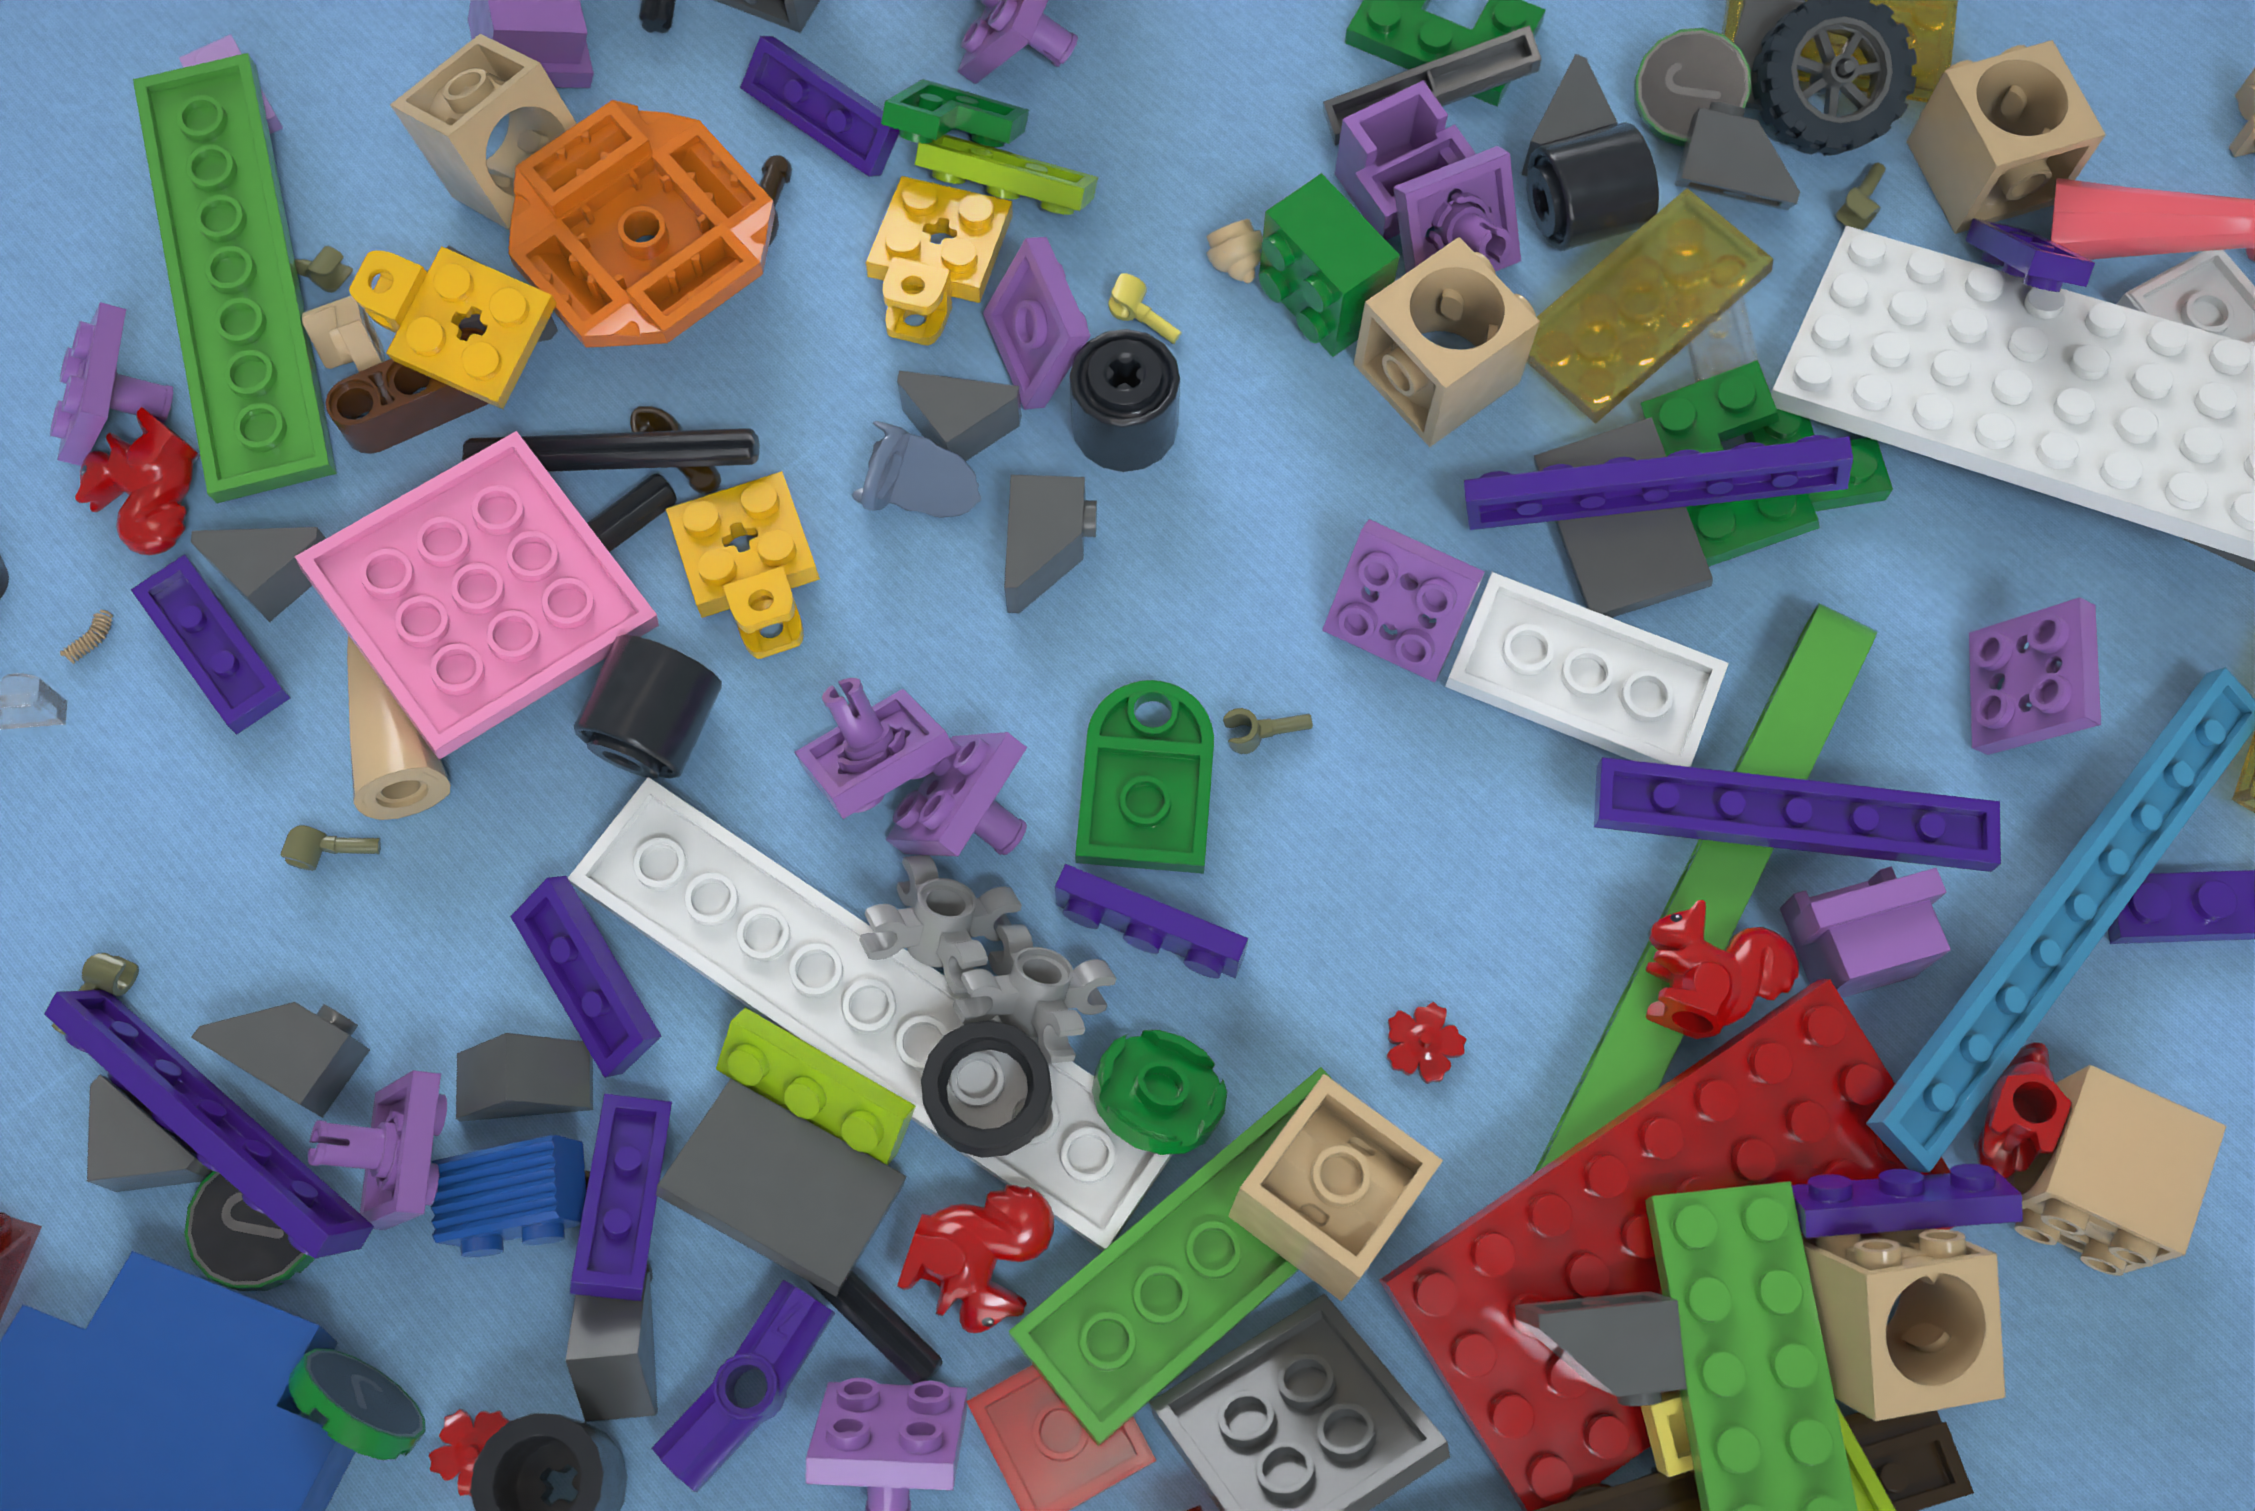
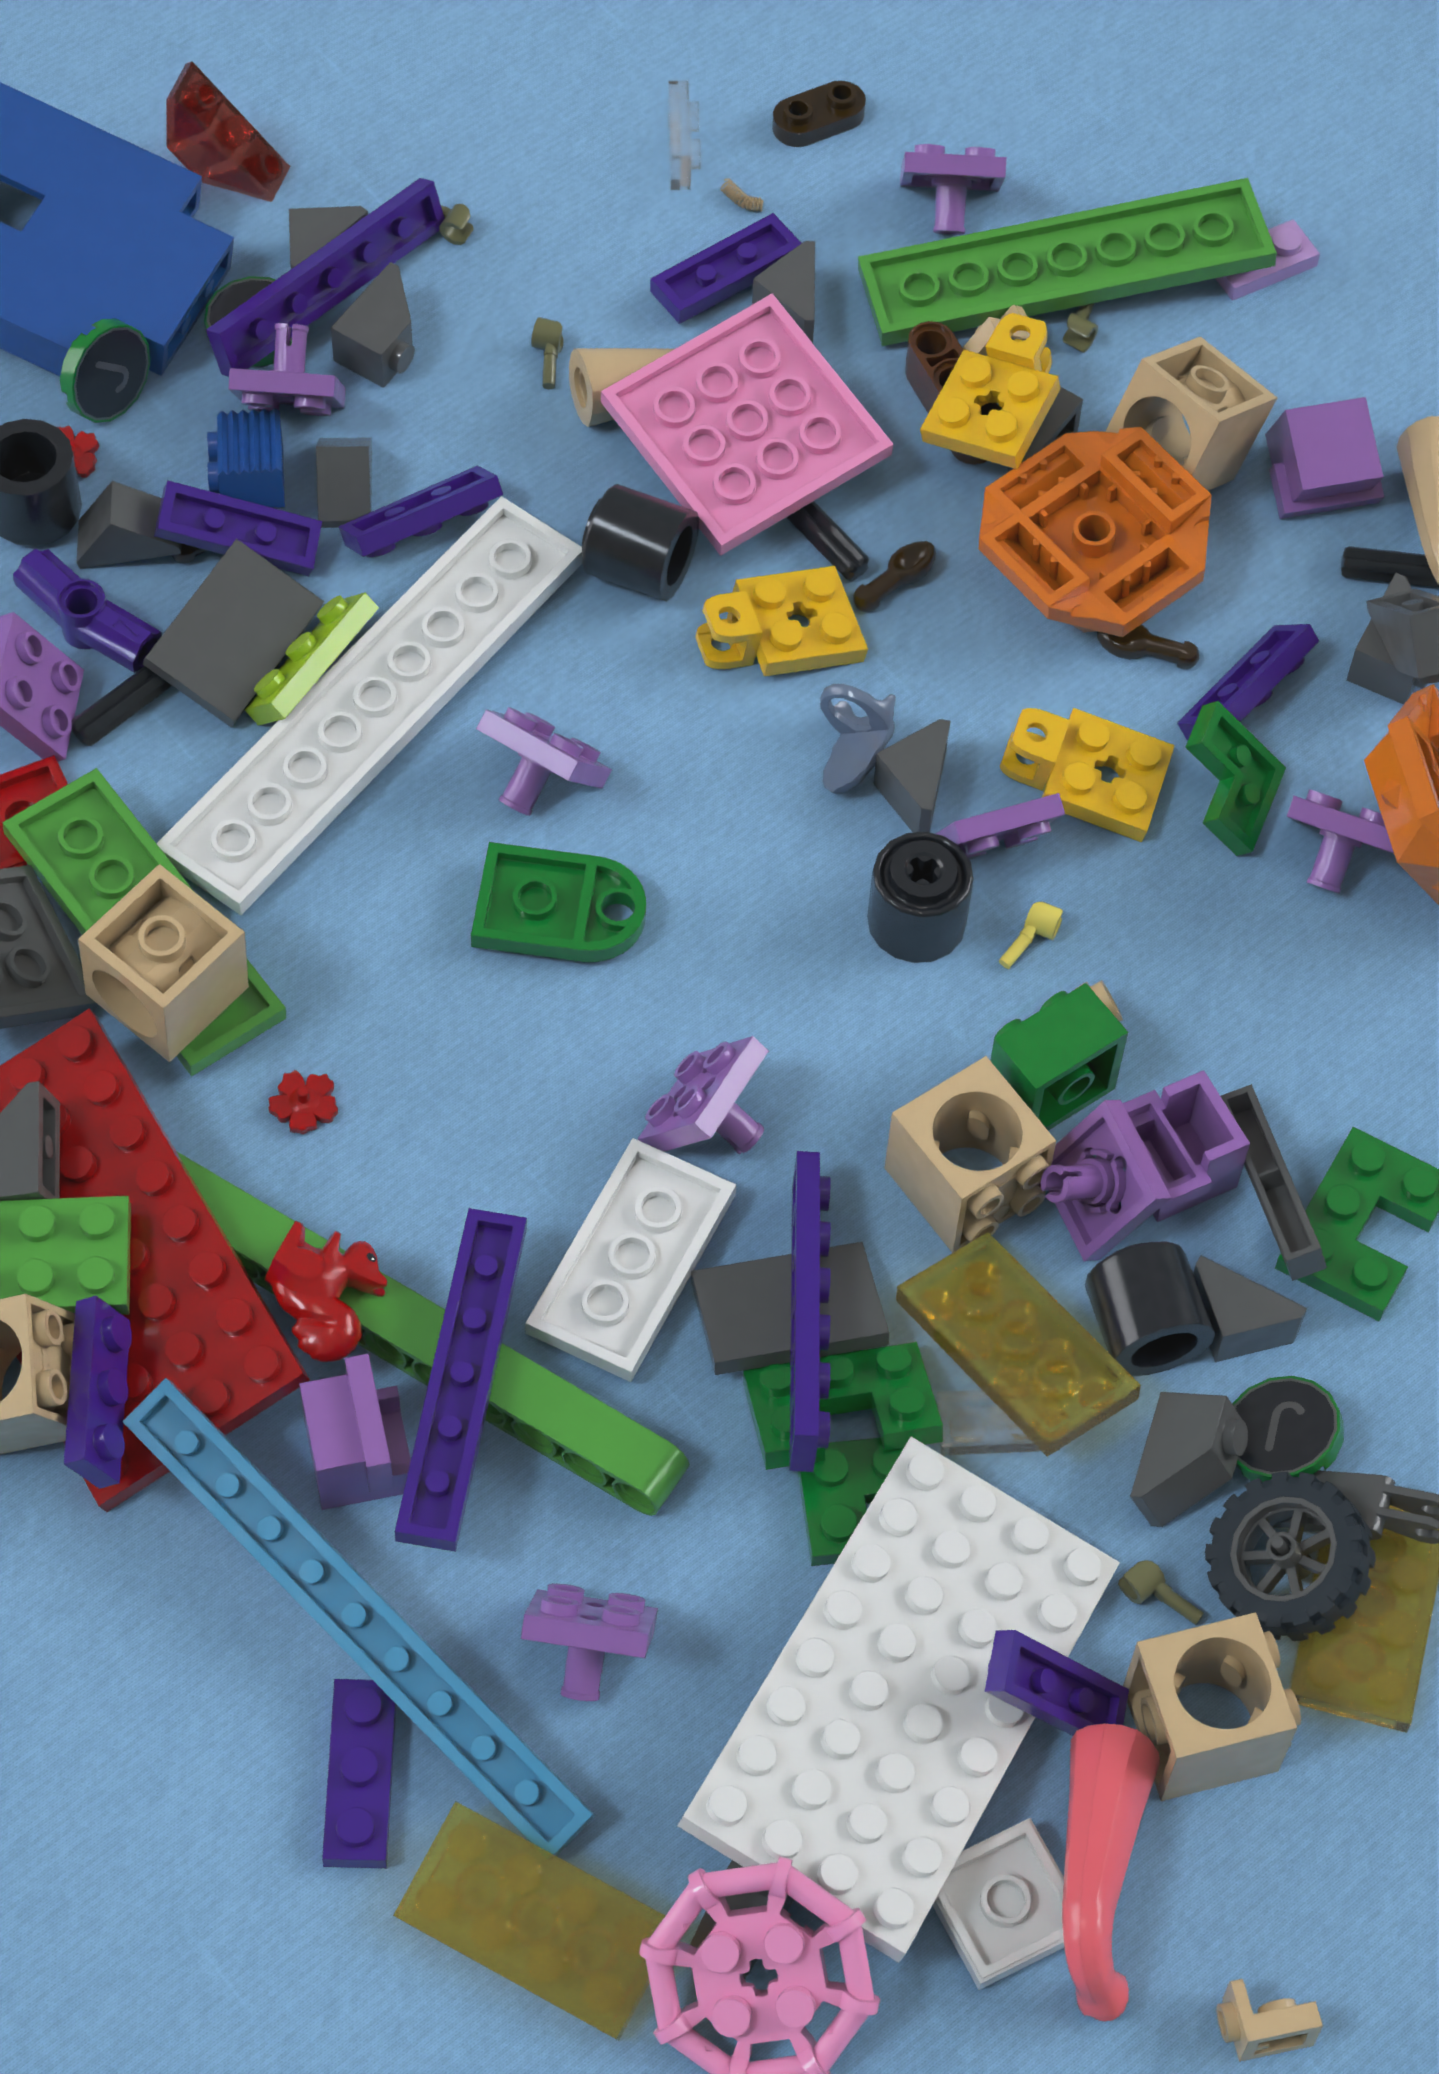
camera: 90 degrees right, 10 degrees down
(153, 473) = (880, 223): red animal -> none
(636, 449) = (888, 530): black axle -> none
(872, 747) = (591, 693): medium lavender plate -> none
(939, 922) = (417, 744): light grey pin -> none
(962, 1247) = (167, 753): red animal -> none
(981, 1037) = (288, 723): black tyre -> none
(1007, 173) = (1174, 830): lime plate -> none
(1035, 992) = (349, 802): light grey pin -> none
(1044, 534) = (790, 834): dark grey slope -> none
(1149, 923) = (424, 895): dark purple plate -> none
(1159, 1092) = (277, 889): green tile -> none
(1261, 728) = (601, 994): olive hand -> none
(2022, 1113) = (171, 1520): red animal -> none
(2120, 1176) = (109, 1591): tan brick -> none

